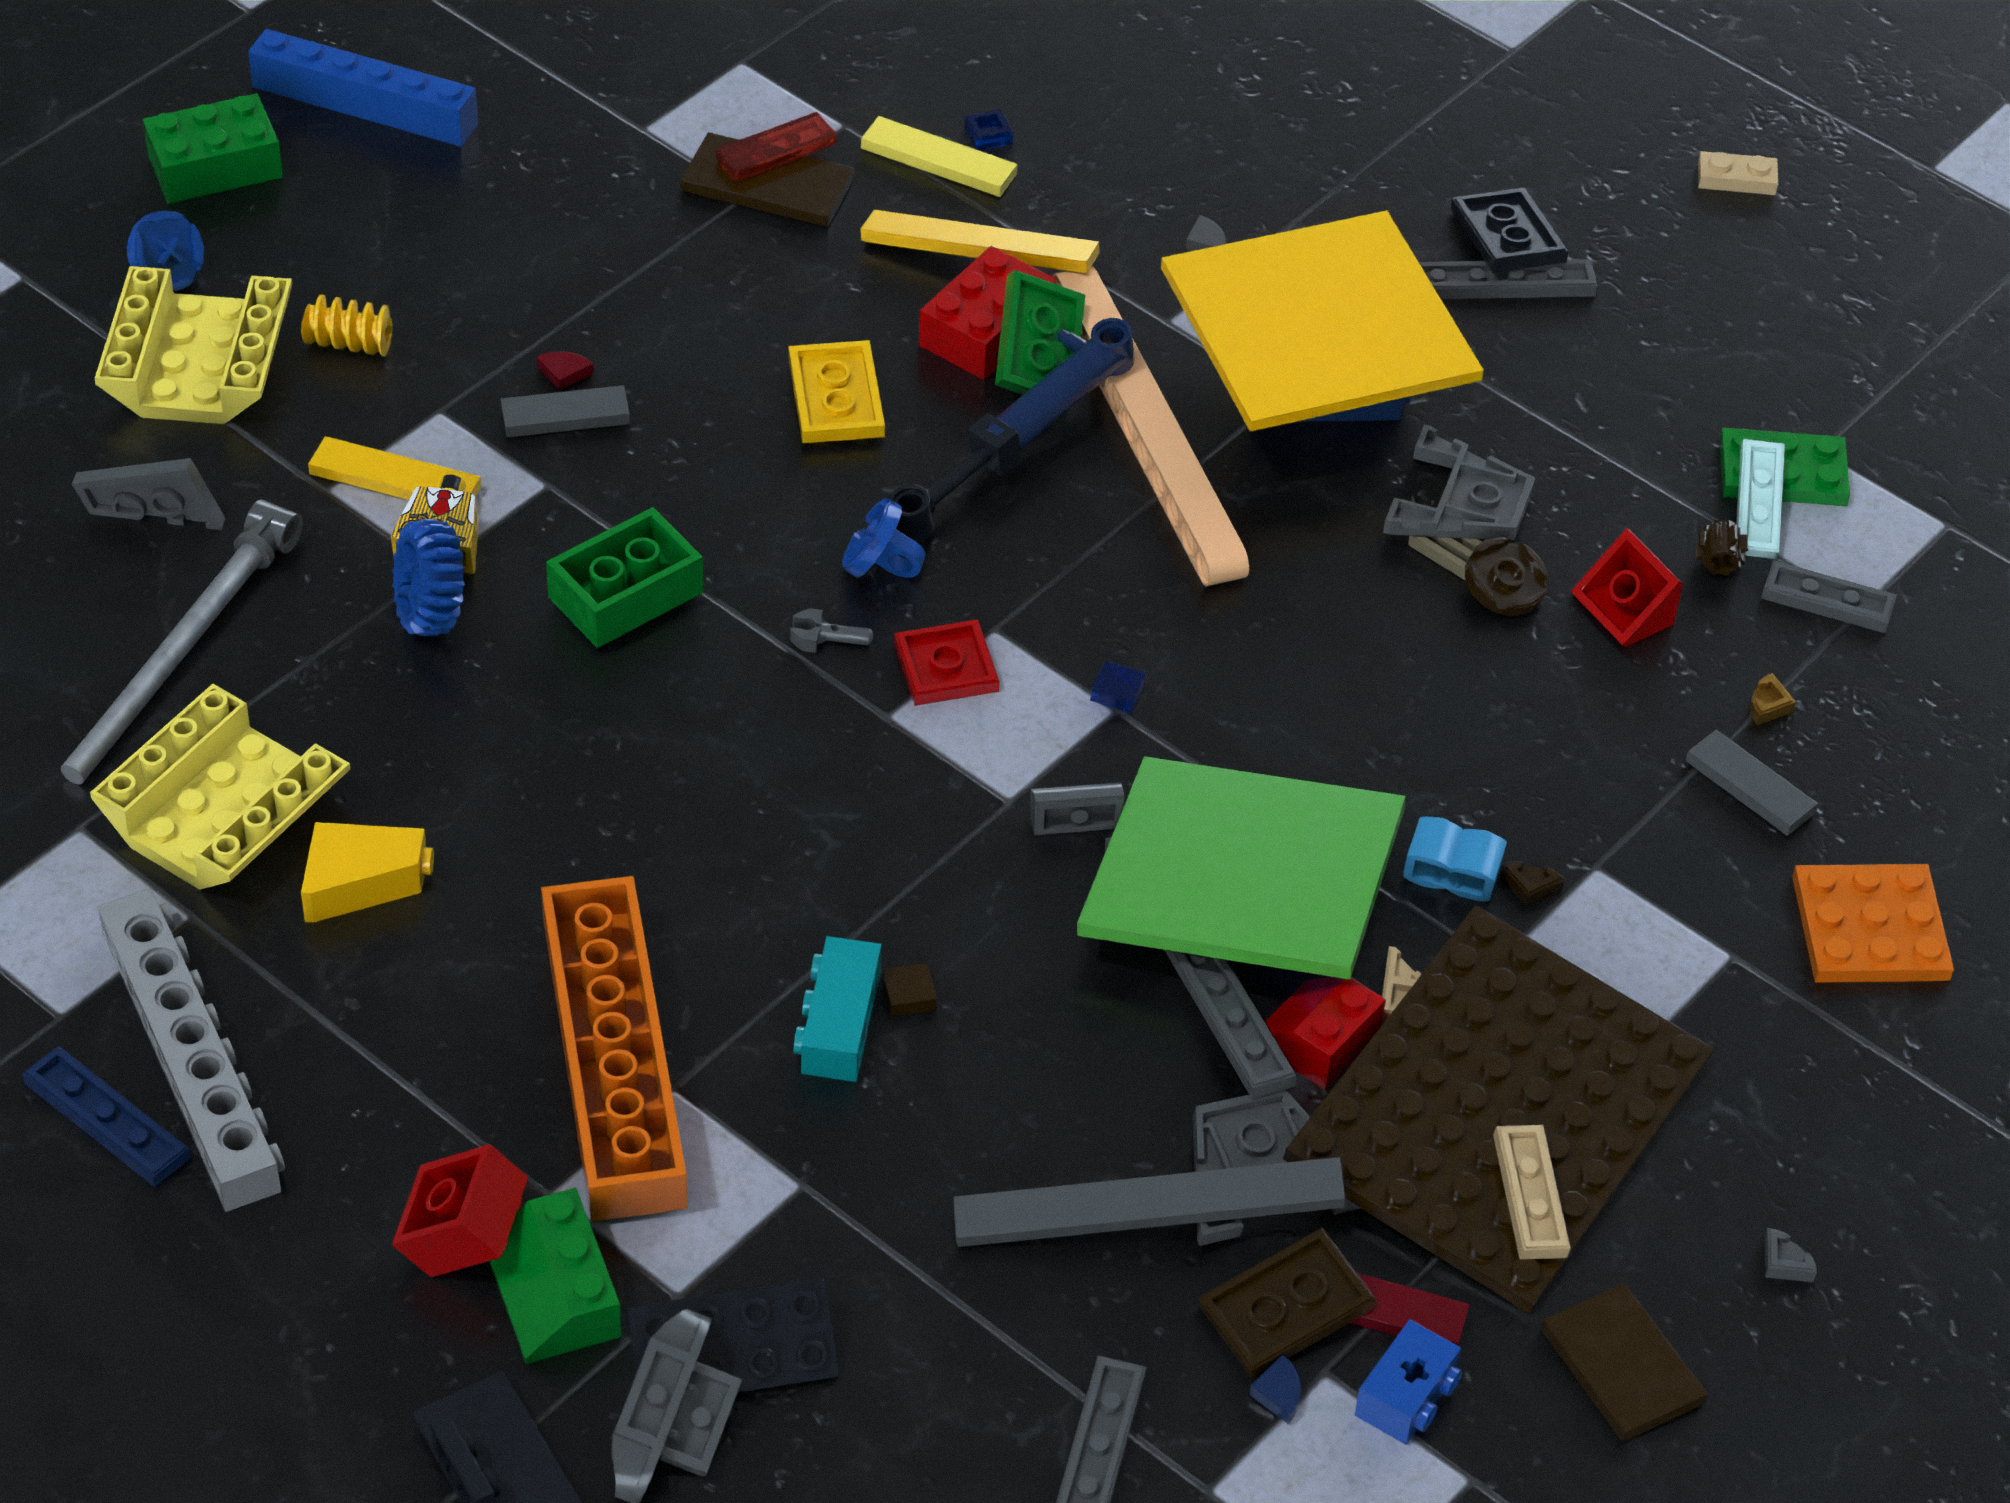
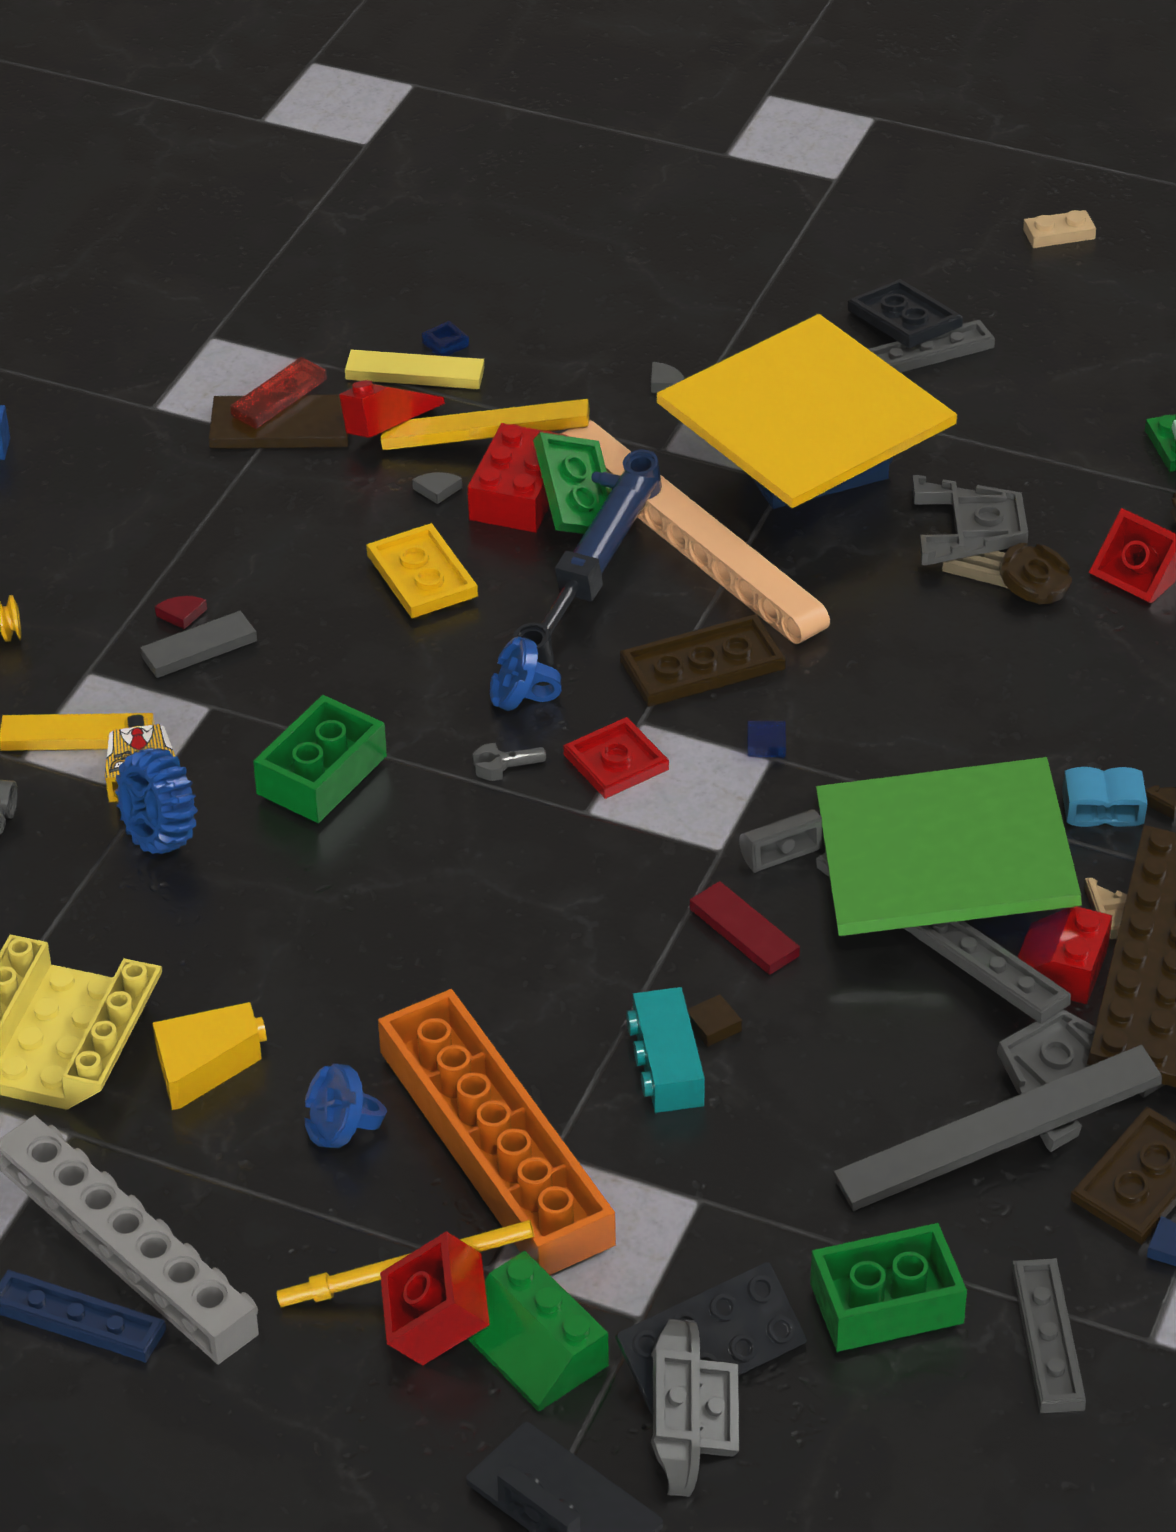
camera: 15 degrees left, 5 degrees down
(365, 1161) = (324, 1286): none -> yellow bar
(468, 972) = (339, 1107): none -> blue tile
(870, 192) = (376, 408): none -> red slope
(900, 297) = (437, 485): none -> dark grey tile
(942, 1343) = (888, 1287): none -> green brick
(991, 895) = (744, 927): none -> dark red tile
(1092, 576) = (702, 660): none -> dark brown tile

